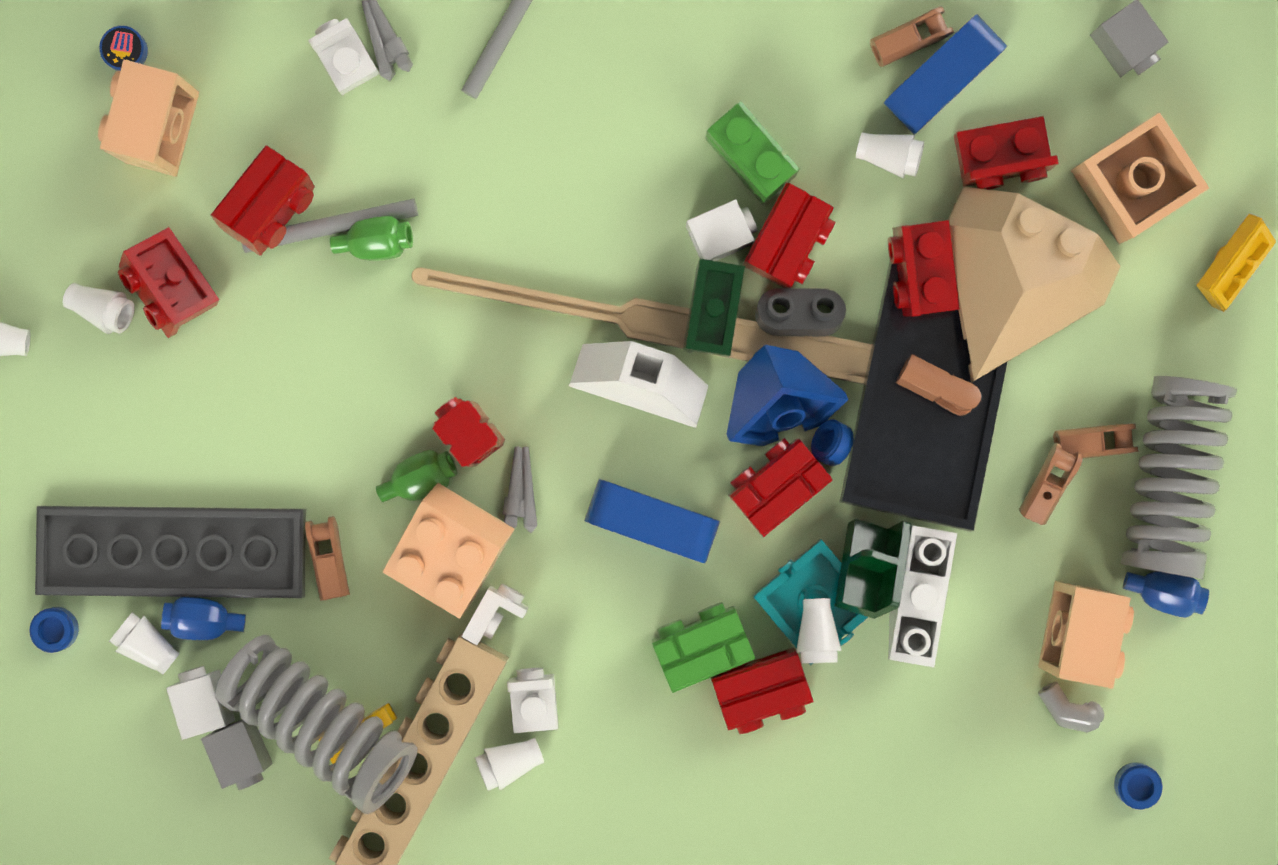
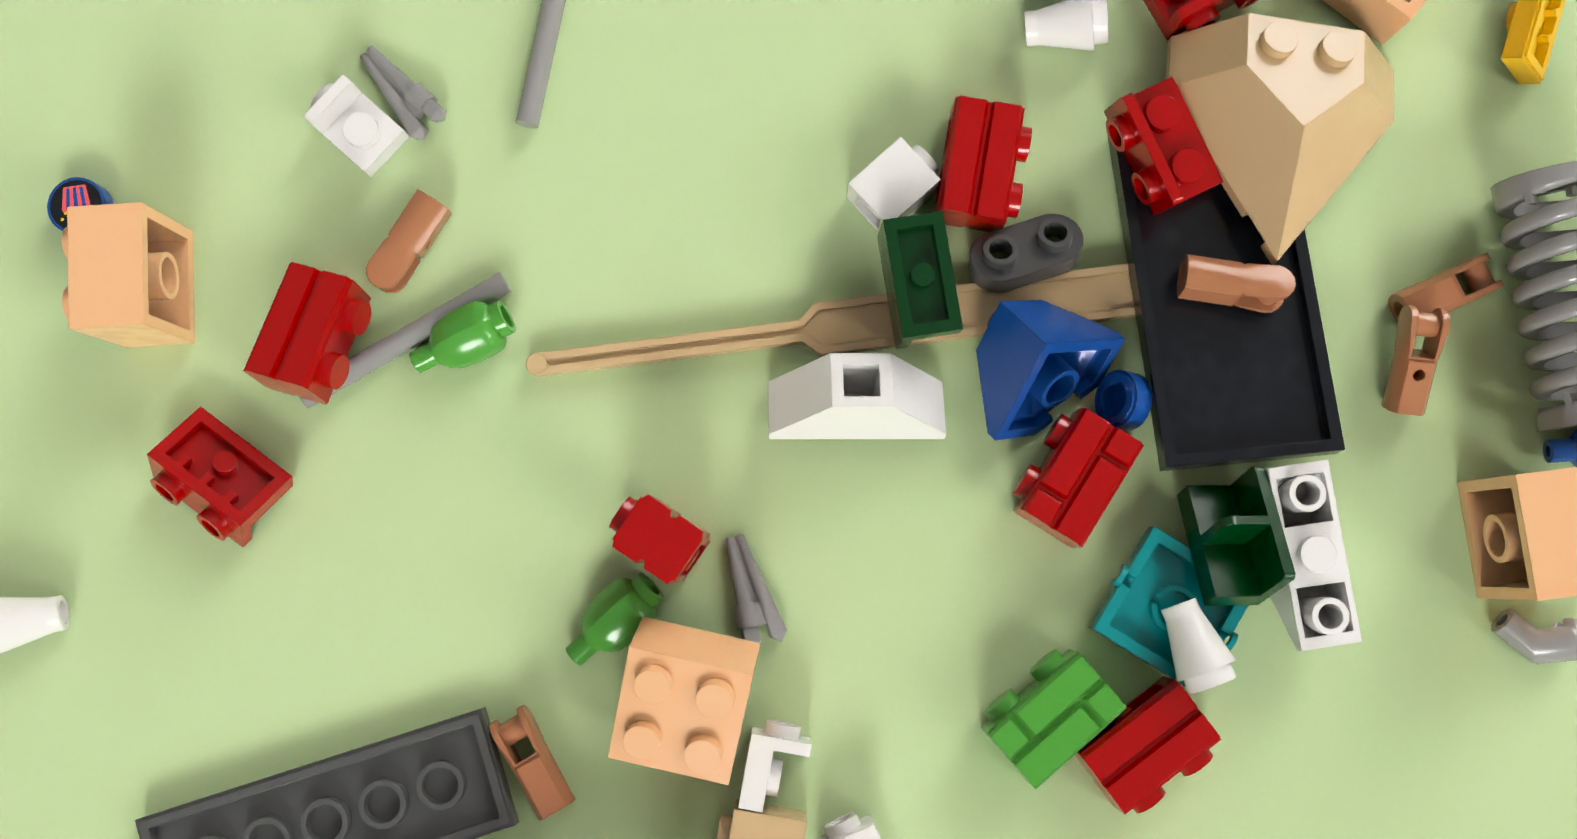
camera: 15 degrees left, 5 degrees down
(103, 308) = (144, 536): white cone -> none
(354, 155) = (407, 243): none -> nougat bar
(652, 521) = (930, 574): blue beam -> none
(751, 152) = (898, 77): bright green brick -> none

